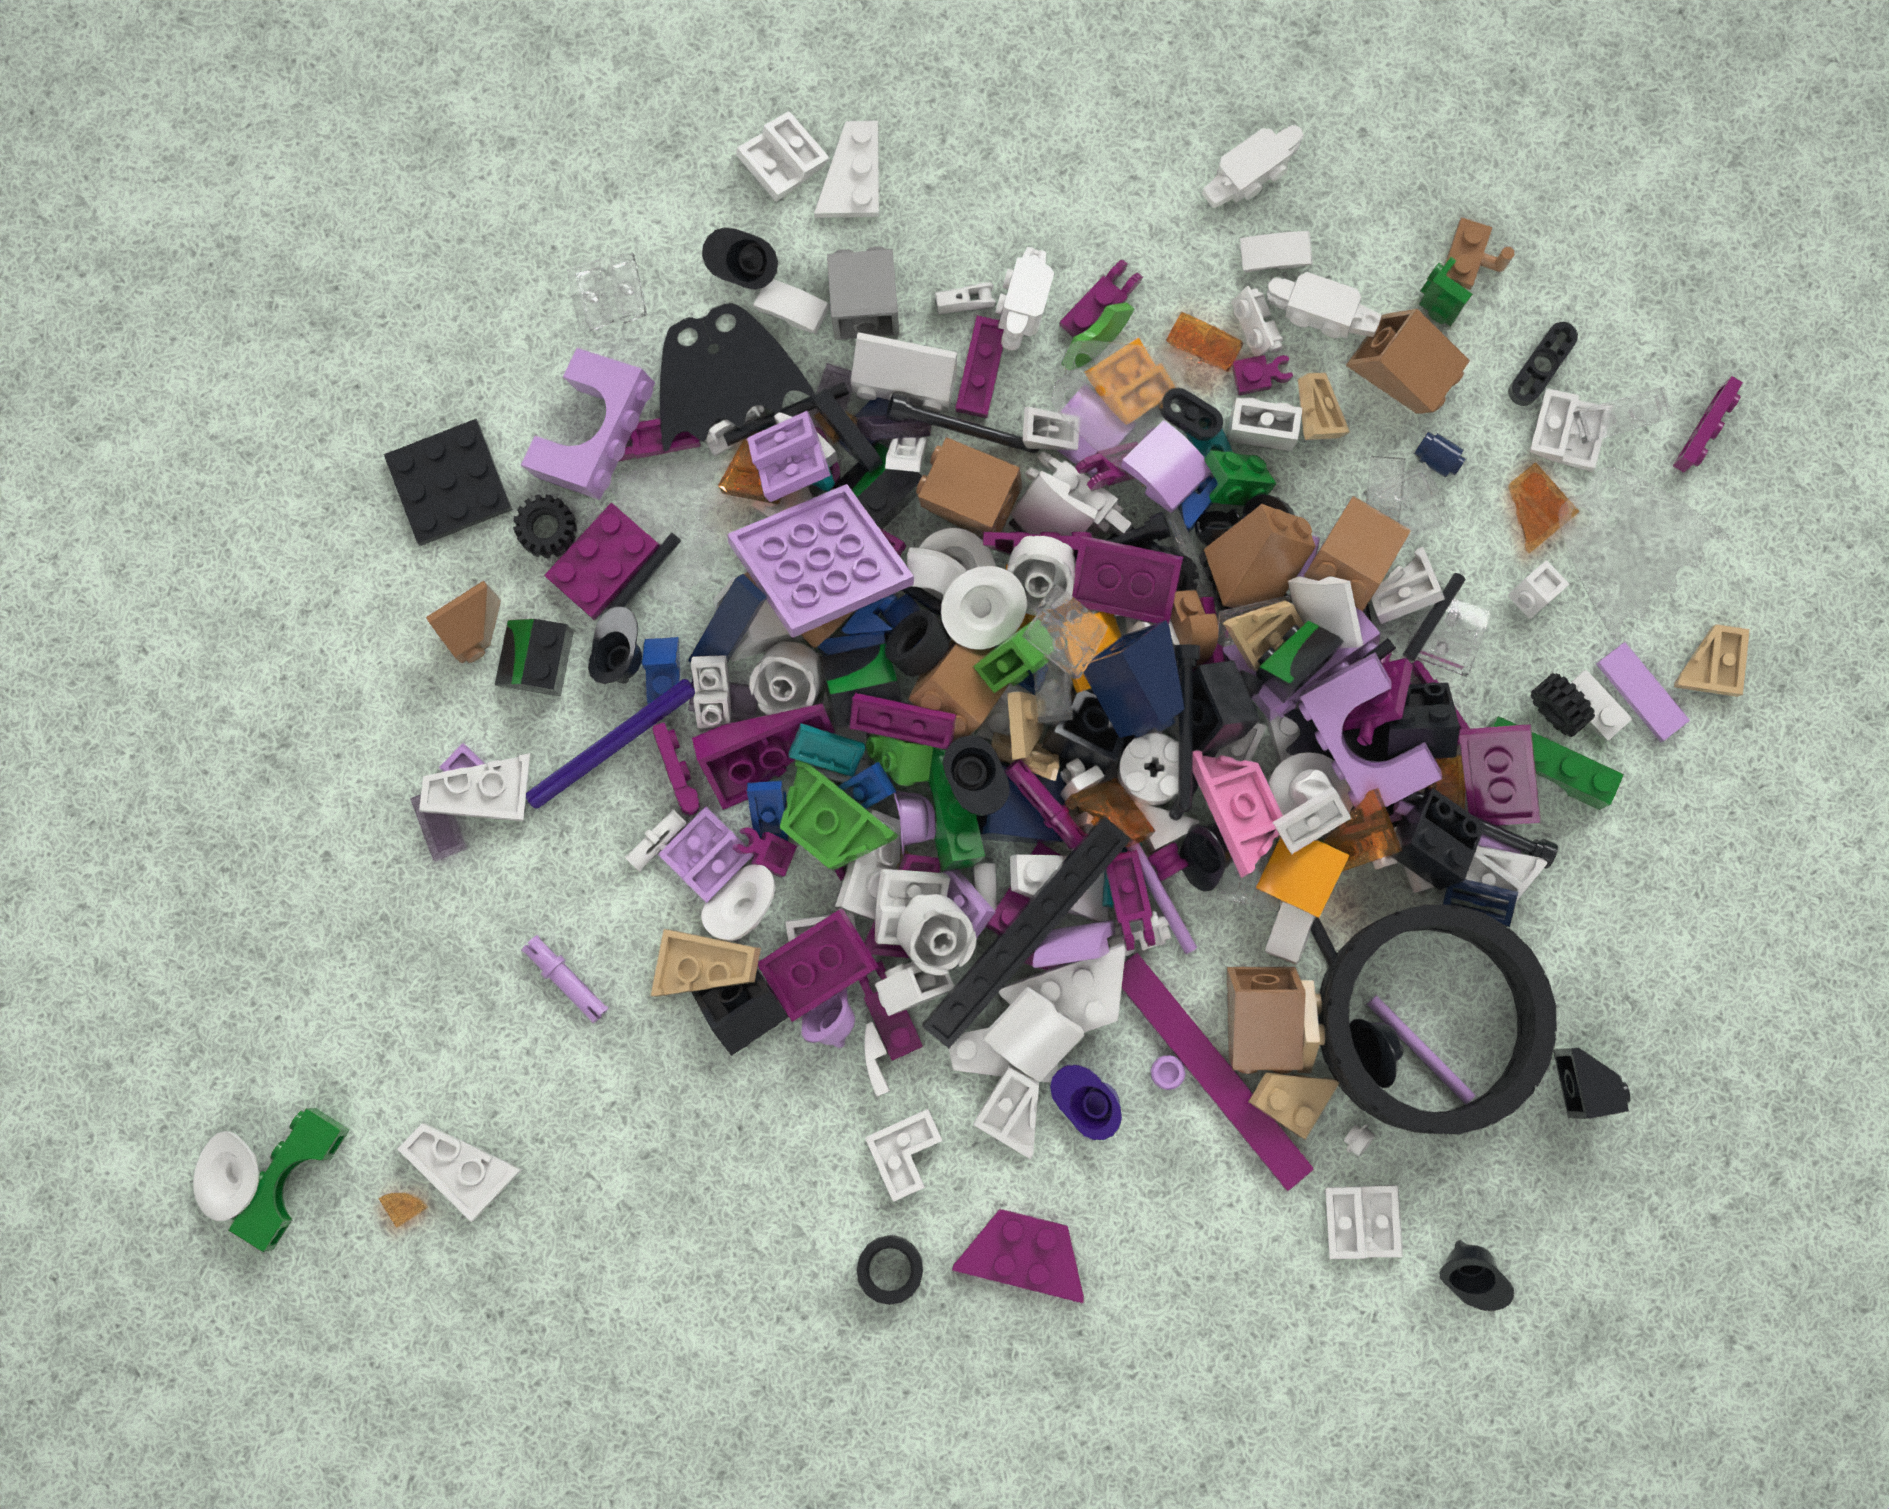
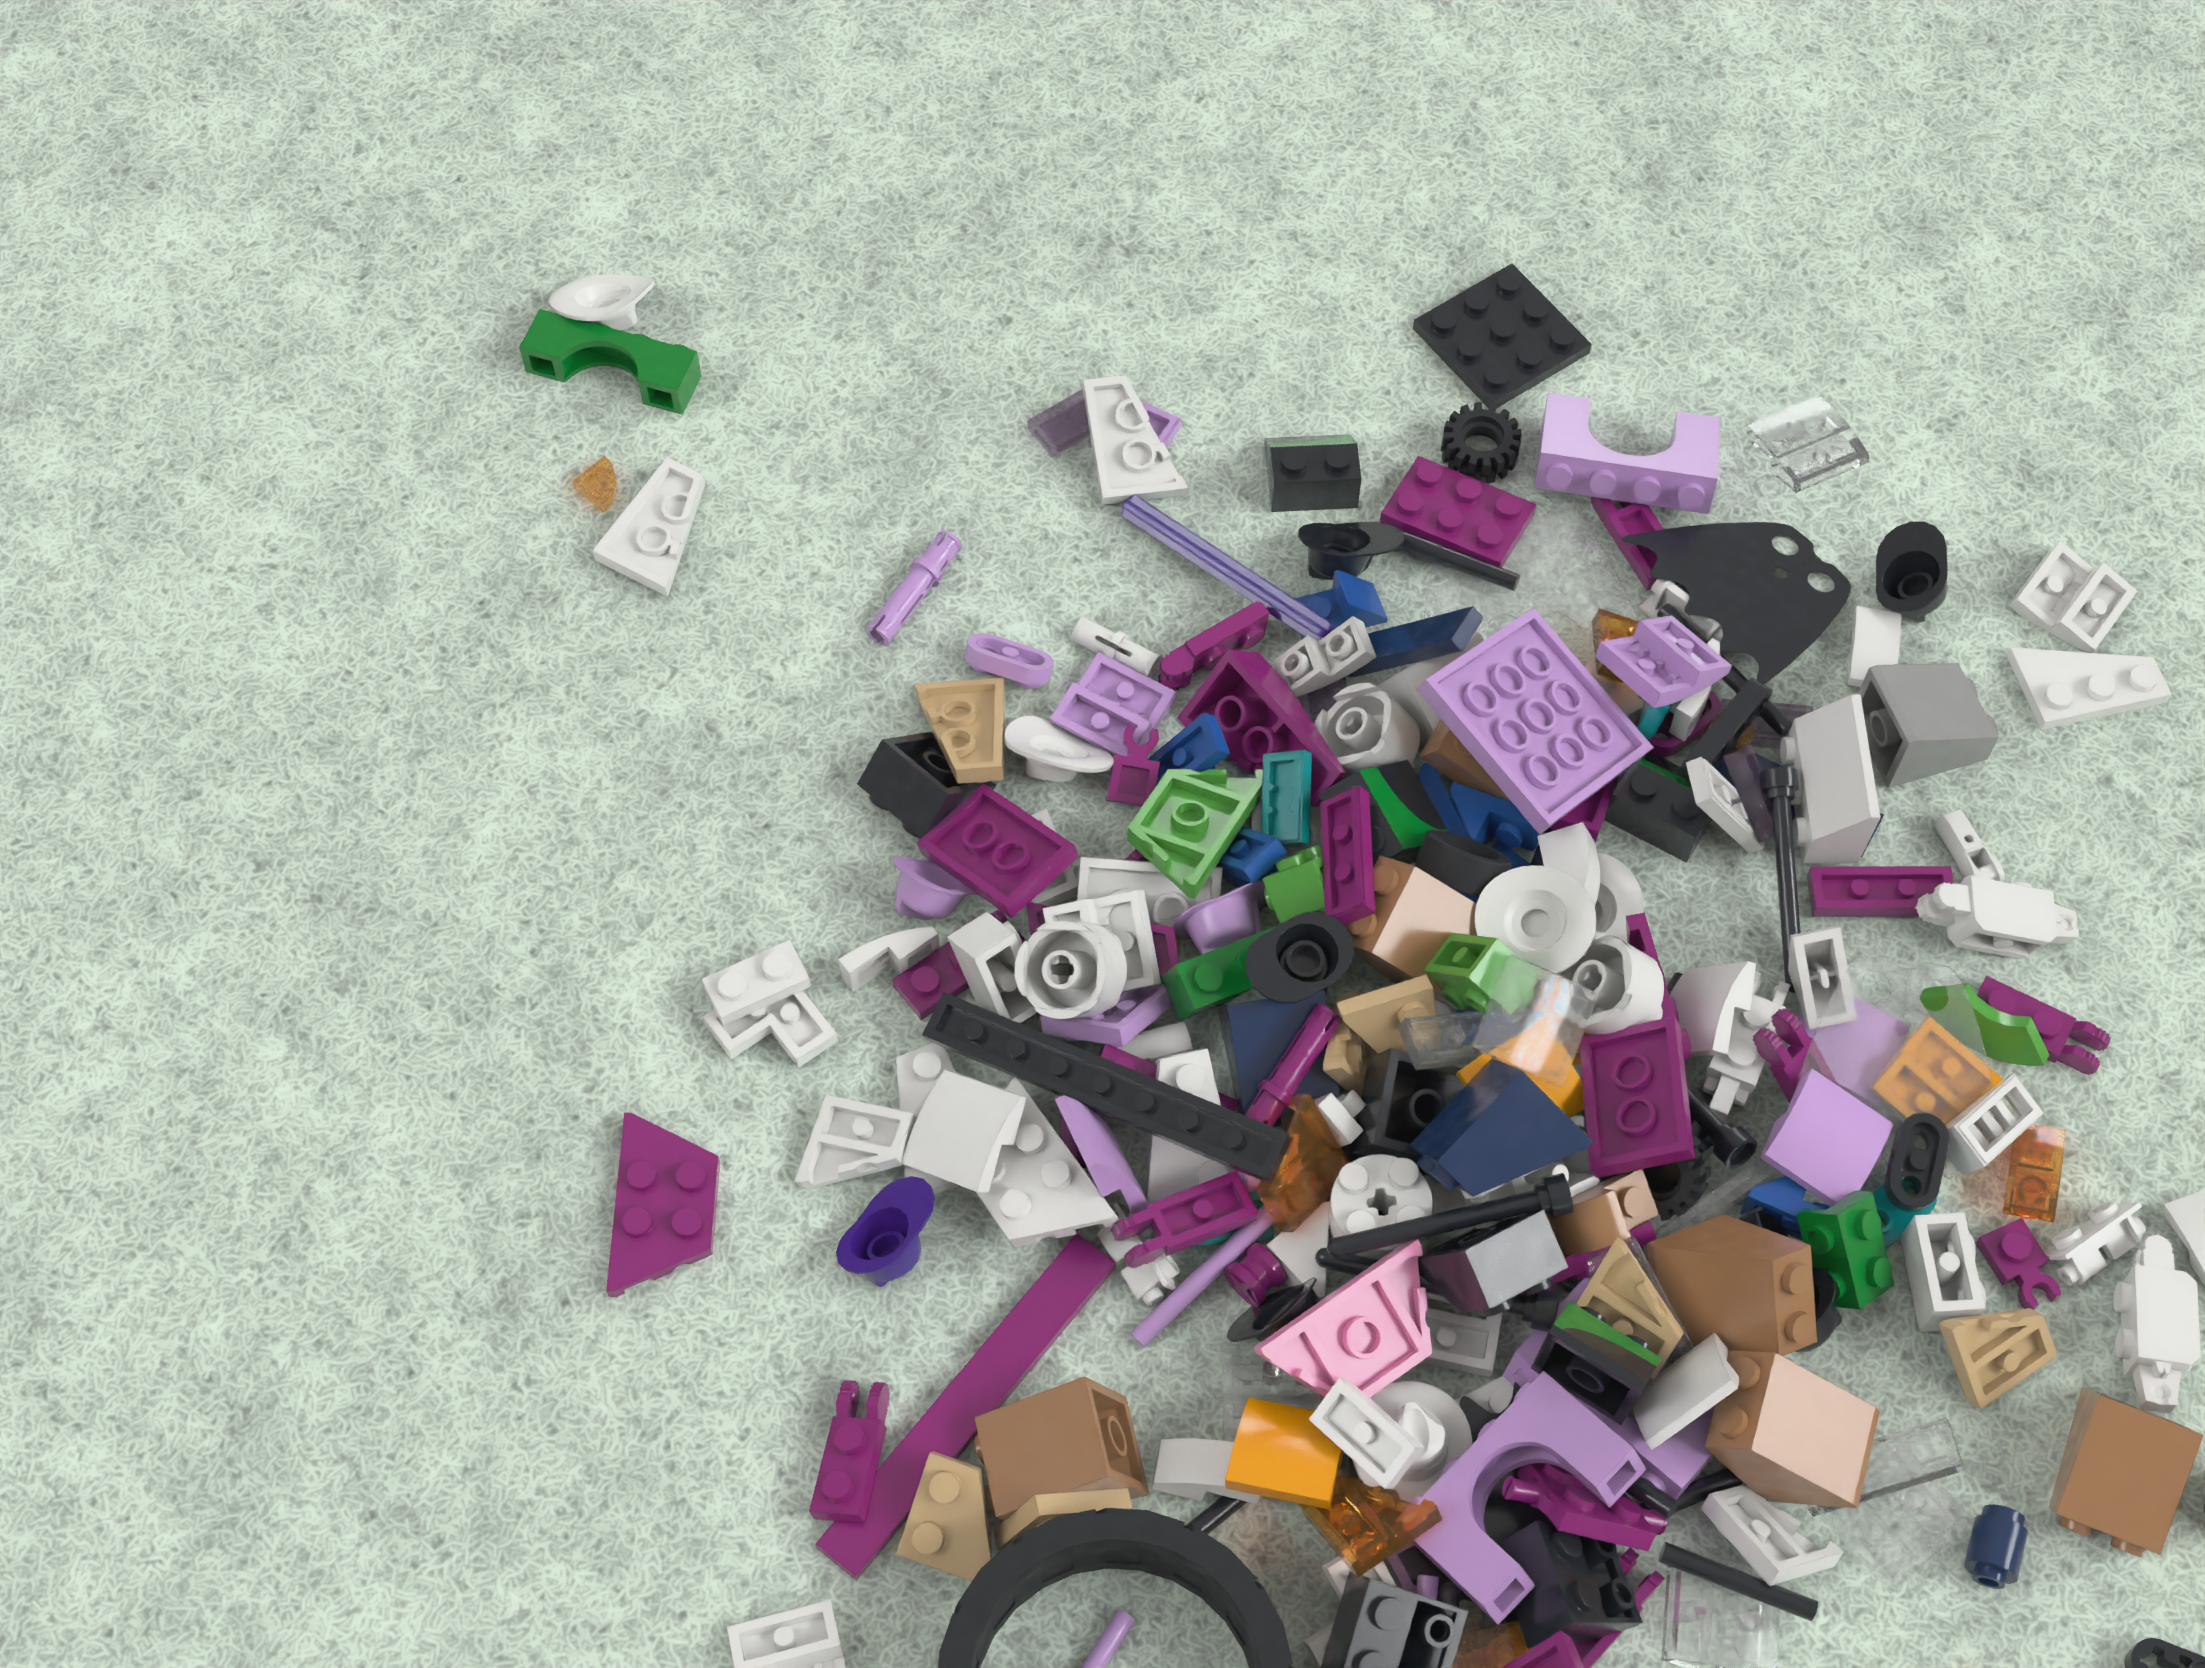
camera: 75 degrees right, 20 degrees down
(467, 622) = (1332, 382): medium nougat slope -> none
(648, 921) = (1008, 659): none -> lavender plate
(867, 1284) = (597, 1004): black tyre -> none
(878, 1159) = (756, 982): none -> white plate
(970, 488) = (1701, 897): medium nougat slope -> none
(1167, 1072) = (953, 1342): lavender tile -> none
(1187, 373) = (1968, 1146): none -> white slope
(1235, 1156) = (851, 1455): none -> magenta hinge
(1359, 1139) = (911, 1635): white plate -> none
(1377, 1049) = (1055, 1625): black piece -> none

